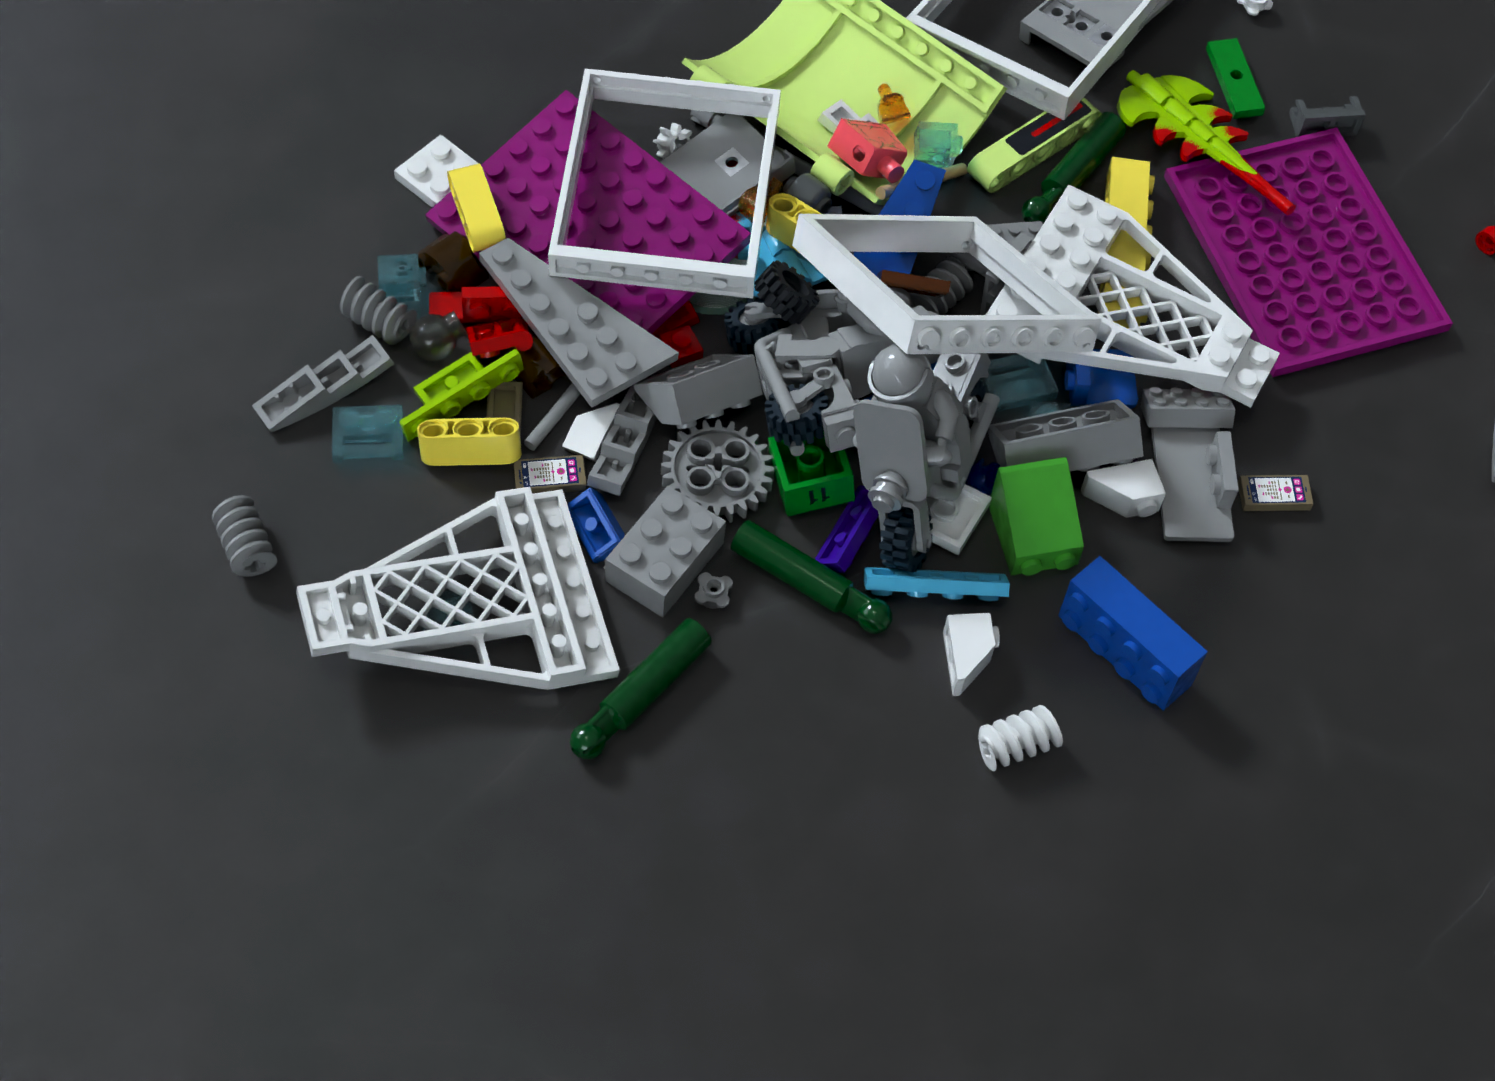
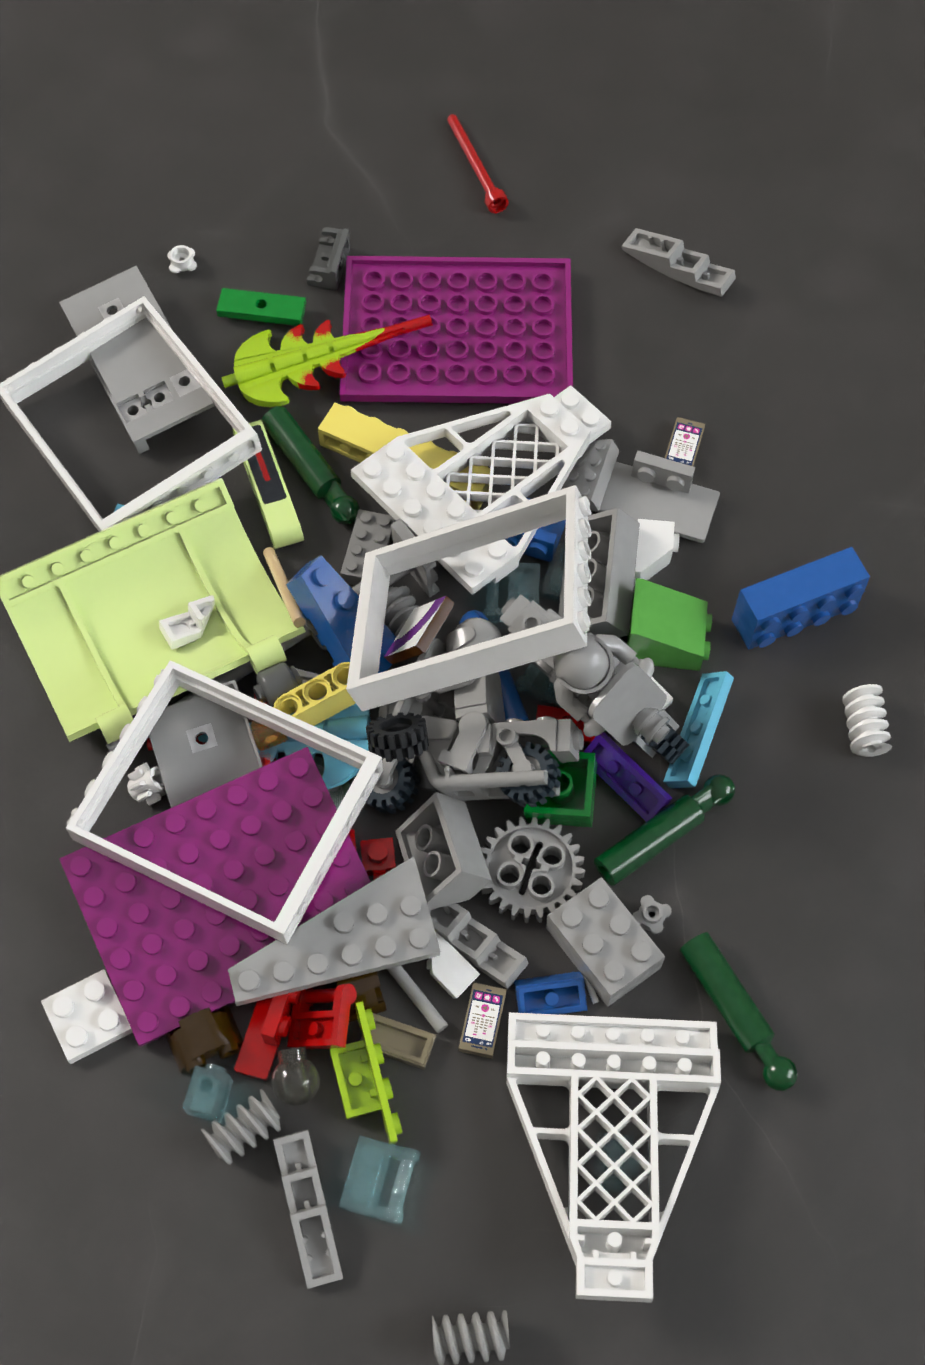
camera: 65 degrees left, 5 degrees up
(469, 441) = (435, 1098): light yellow beam -> none
(476, 207) = (170, 989): light yellow beam -> none
(869, 149) = (247, 613): coral torso -> none
(891, 106) = (188, 582): clear orange piece -> none
(937, 143) = (247, 560): clear light blue brick -> none
(968, 647) = (773, 728): white slope -> none

